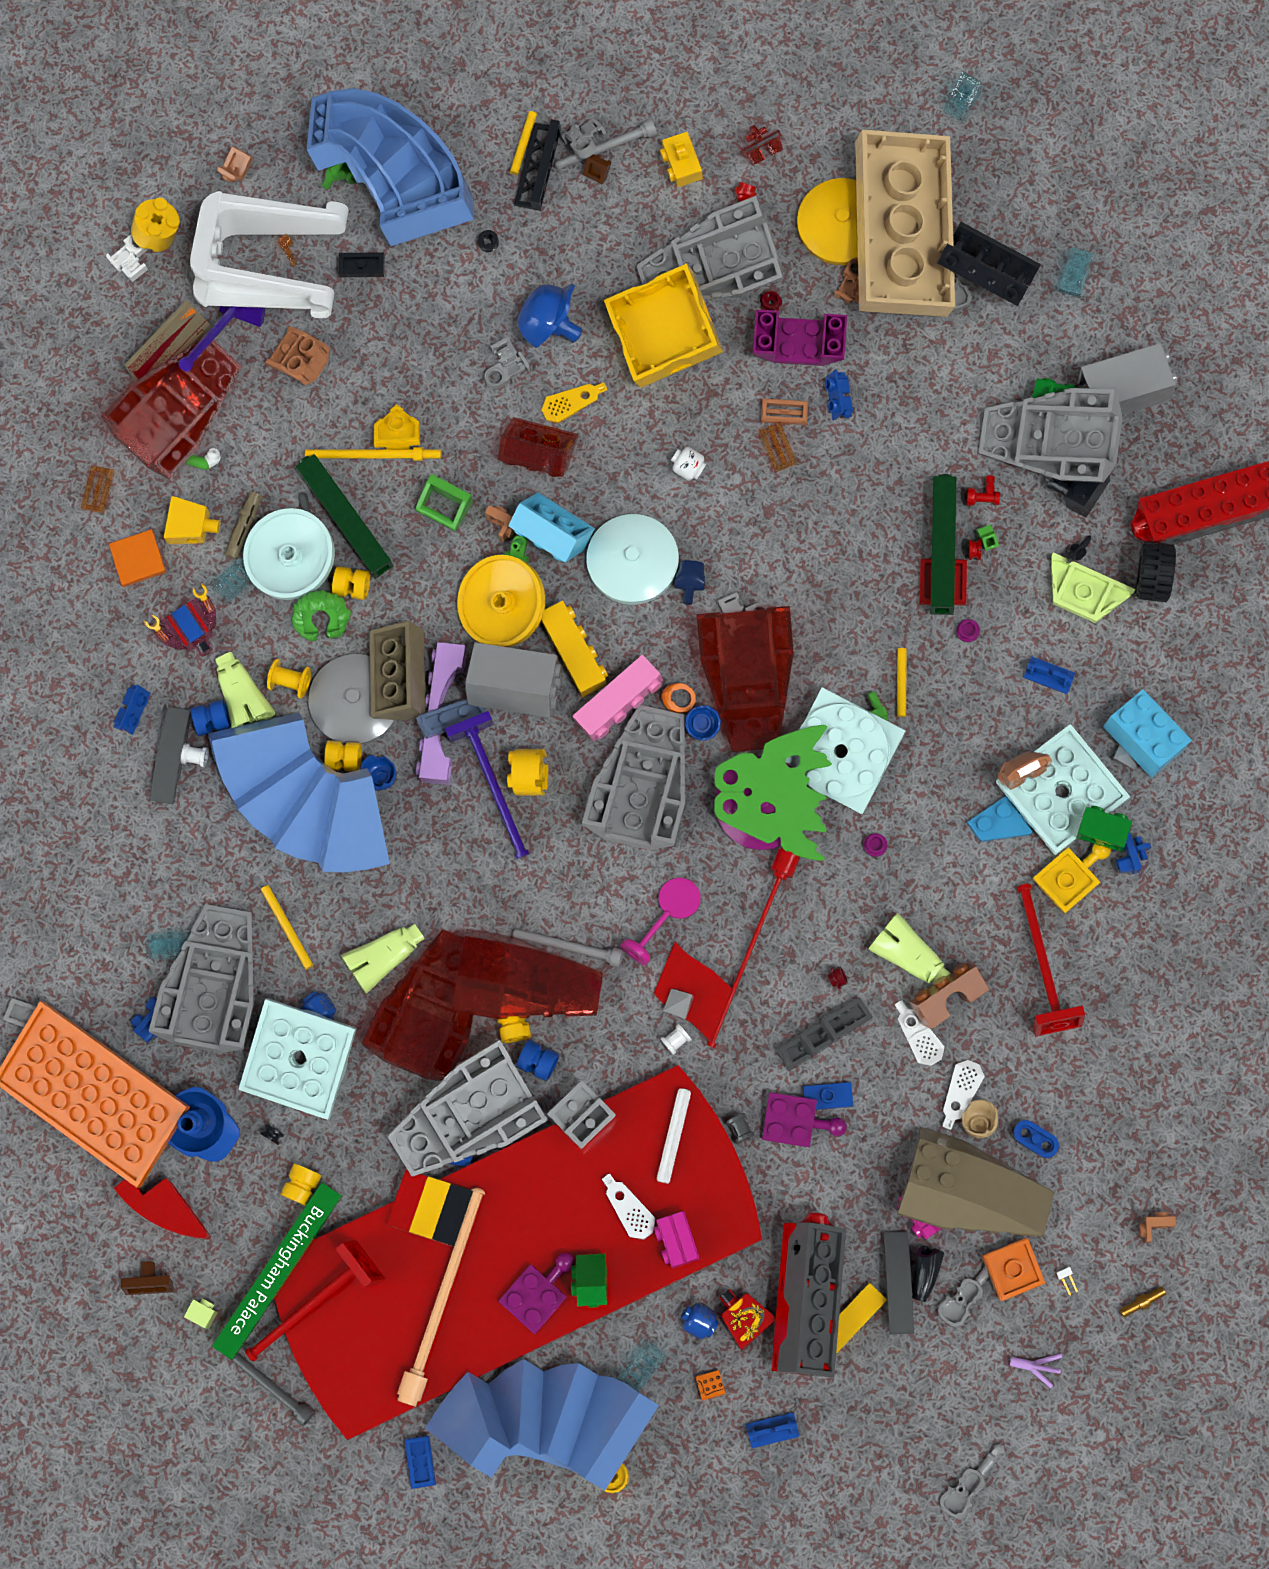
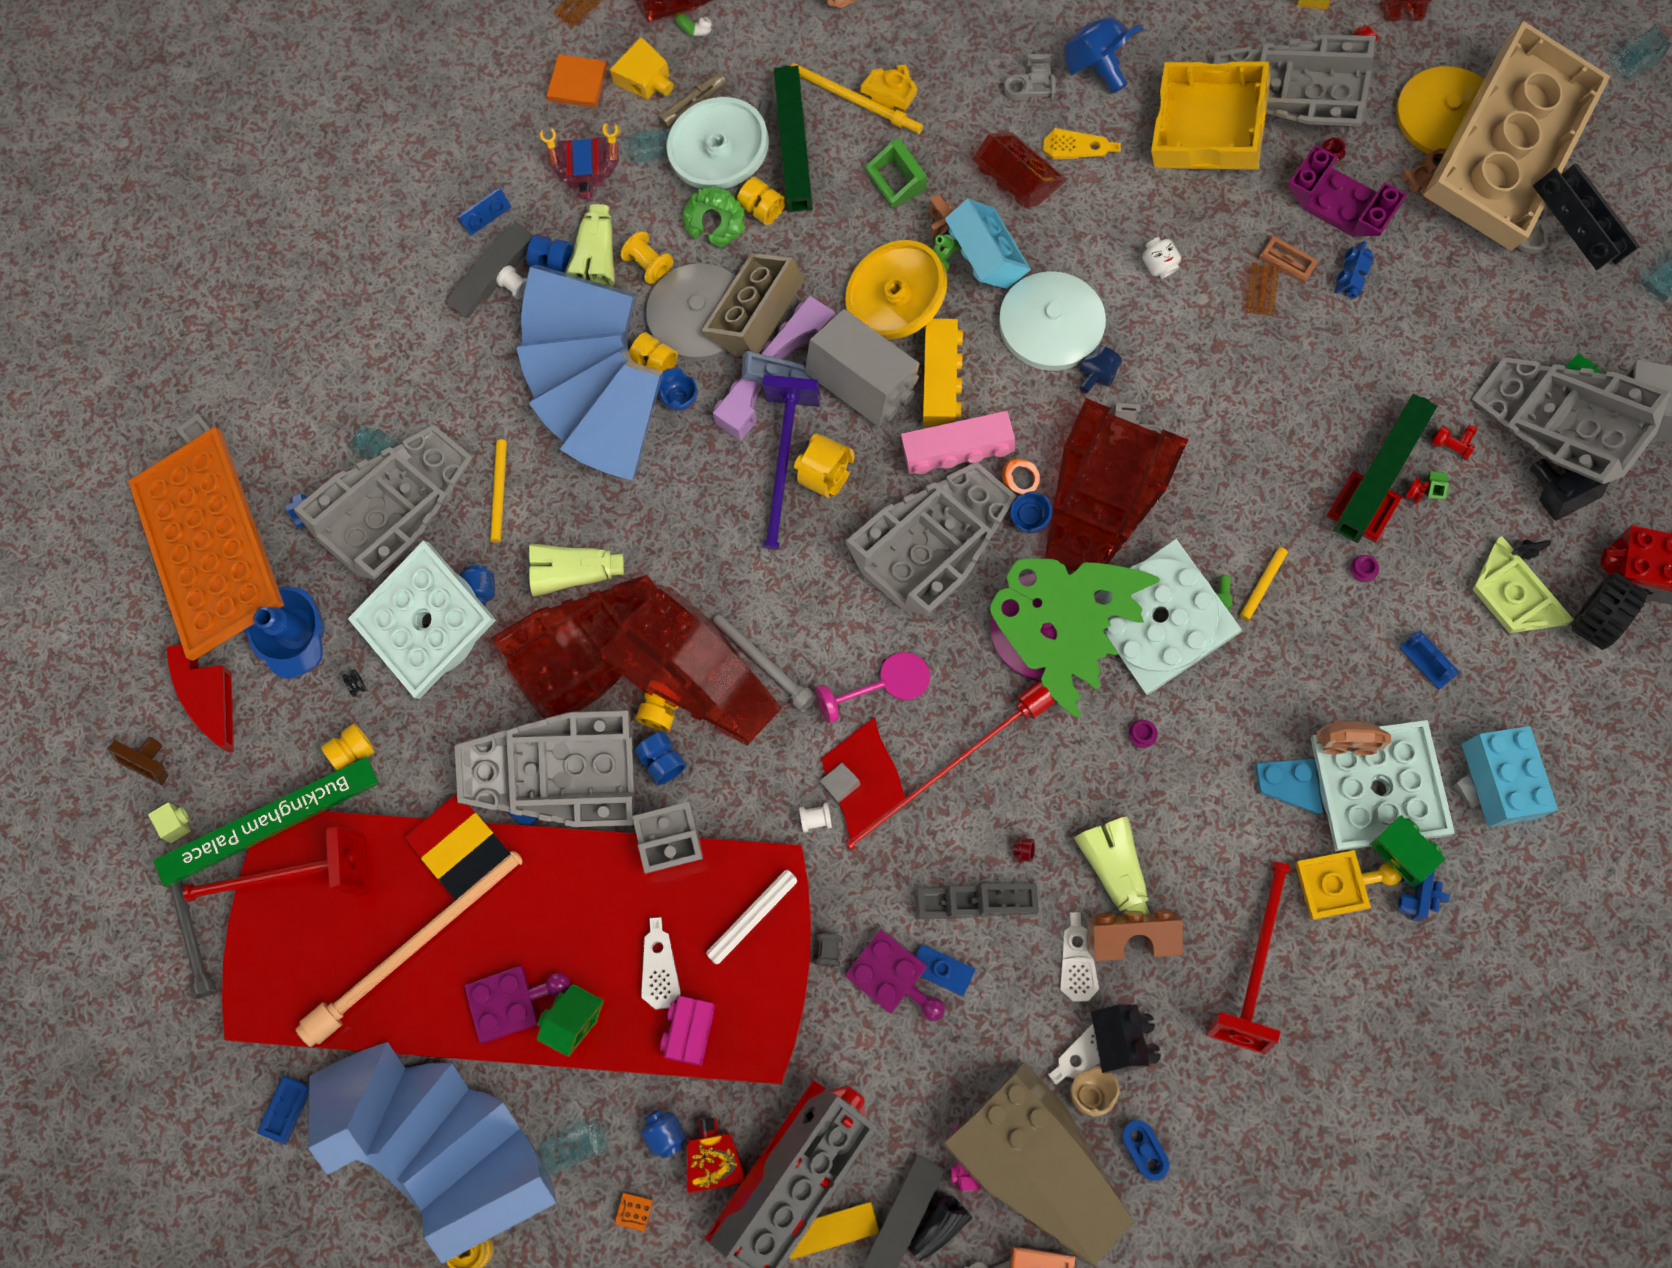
camera: 25 degrees right, 5 degrees down
(979, 1073) = (1122, 1040): none -> black brick

